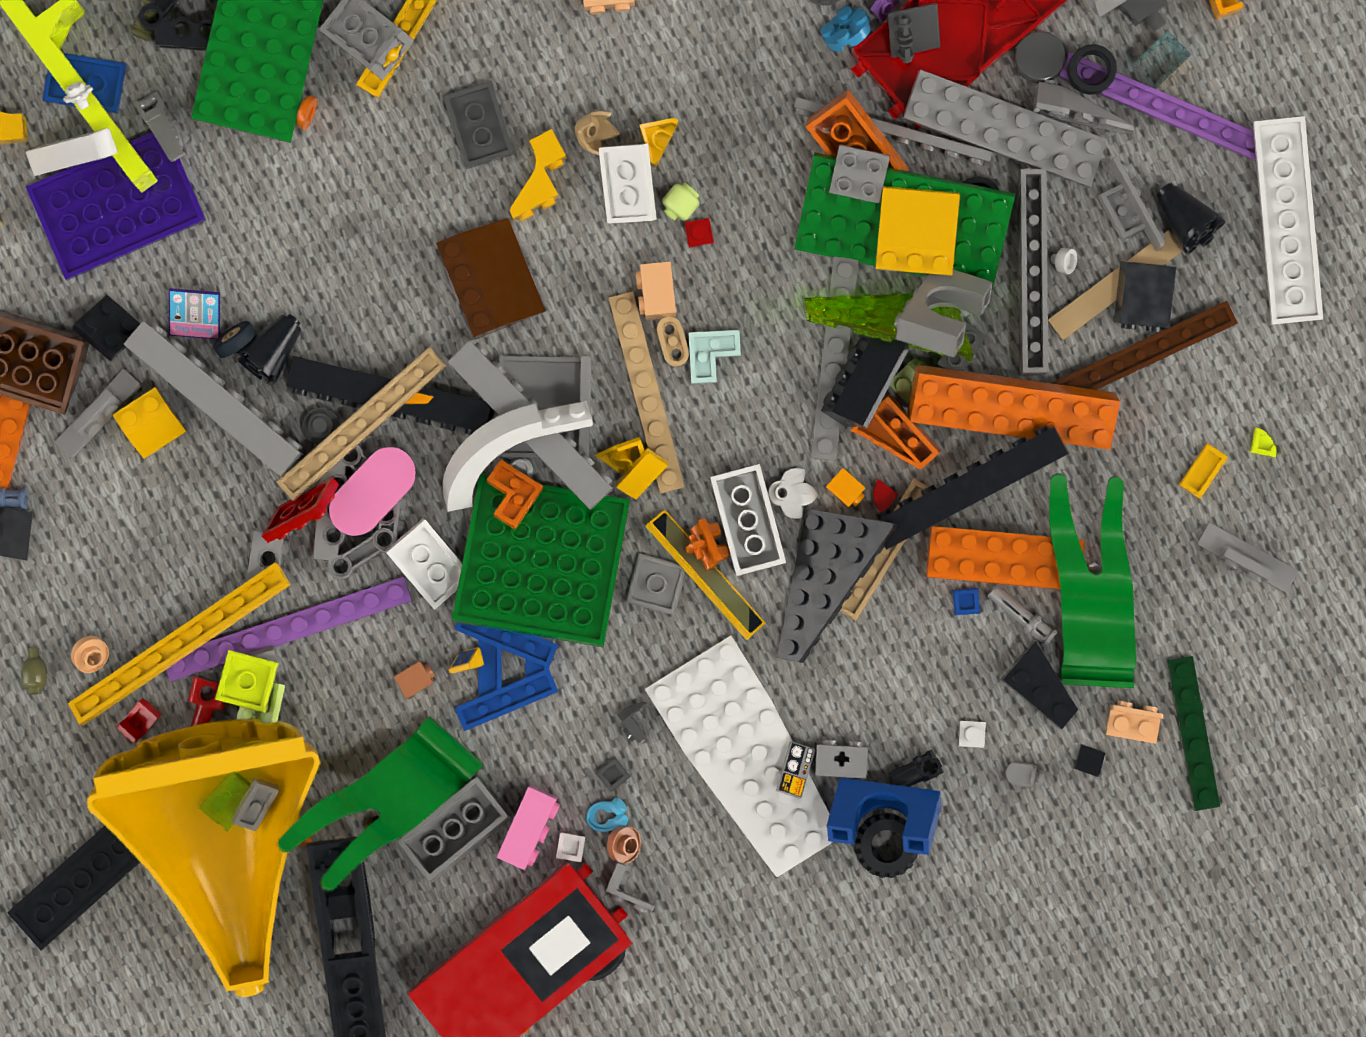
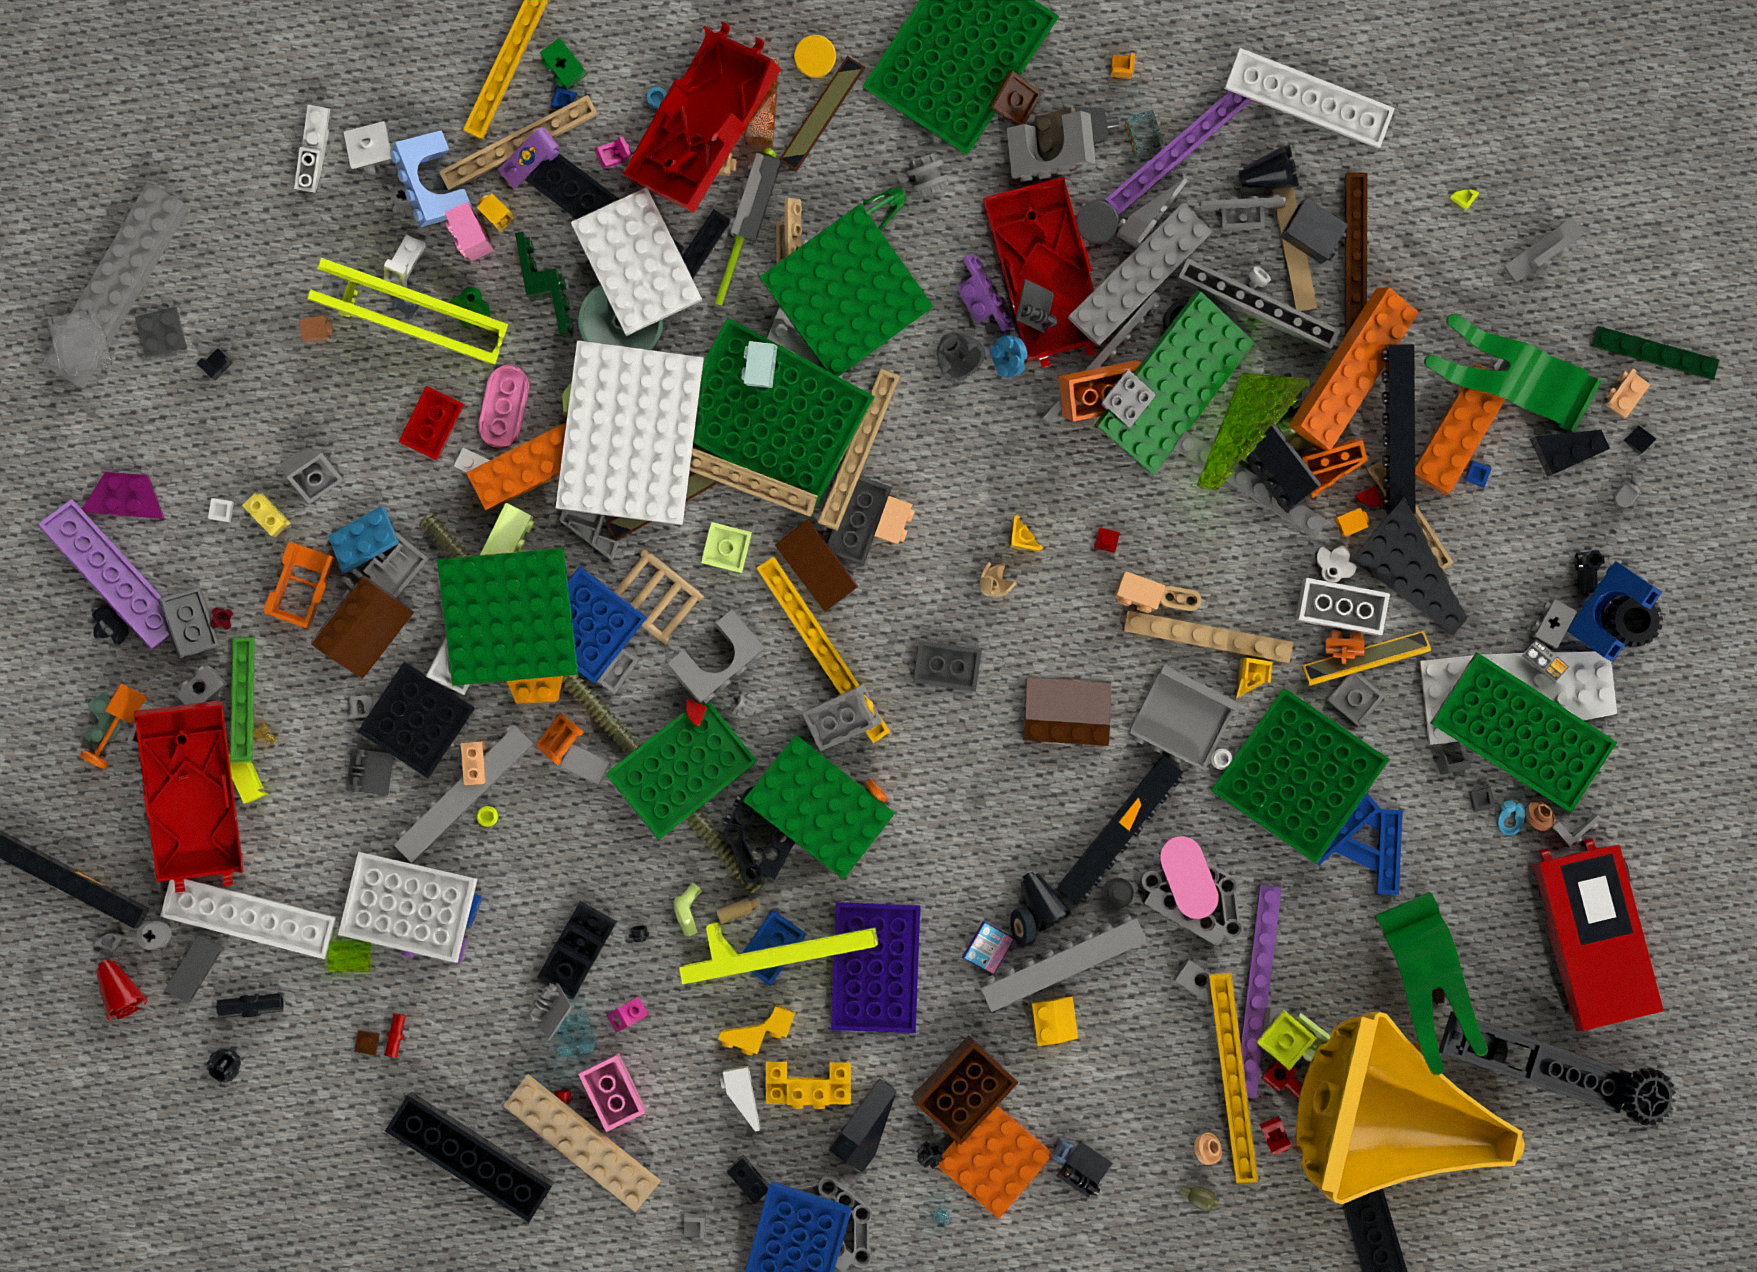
camera: 70 degrees left, 0 degrees up
(71, 151) = (826, 982): white beam -> none
(77, 94) = (789, 956): white plant -> none
(98, 413) = (1028, 1056): light grey bracket -> none
(106, 25) = (736, 910): none -> tan cylinder
(106, 327) = (968, 1017): black plate -> none
(160, 125) = (836, 905): light grey piece -> none
(225, 799) = (1373, 1097): clear neon green plate -> none
(255, 804) = (1384, 1077): light grey plate -> none
(298, 513) = (1179, 938): red plate -> none
(361, 424) = (1134, 861): tan tile -> none
(415, 679) = (1342, 912): nougat brick -> none
(427, 563) = (1261, 861): white plate -> none
(454, 830) = (1472, 935): light grey slope -> none
(467, 660) = (1347, 867): yellow slope -> none
(499, 436) = (1197, 760): white arch -> none
(519, 490) = (1240, 766): orange plate -> none
(528, 828) = (1496, 881): bright pink brick -> none
(539, 189) = (1018, 643): yellow arch -> none
(552, 449) = (1197, 734): light grey brick -> none
(570, 847) = (1522, 856): white plate -> none
(627, 183) = (1047, 575): white plate -> none
(641, 474) = (1269, 669): yellow tile -> none
(680, 202) = (1078, 542): yellowish green head -> none
(705, 782) = (1523, 732): none -> green plate
(707, 346) = (1196, 576): light aqua plate -> none
(917, 230) = (1190, 376): yellow slope -> none
(937, 332) = (1240, 377): light grey arch -> none
(972, 734) = (1578, 517): white plate -> none
(1030, 626) = (1517, 433): light grey pin -> none
(1109, 60) = (1132, 172): black tyre -> none
(1203, 470) = (1463, 251): yellow tile -> none

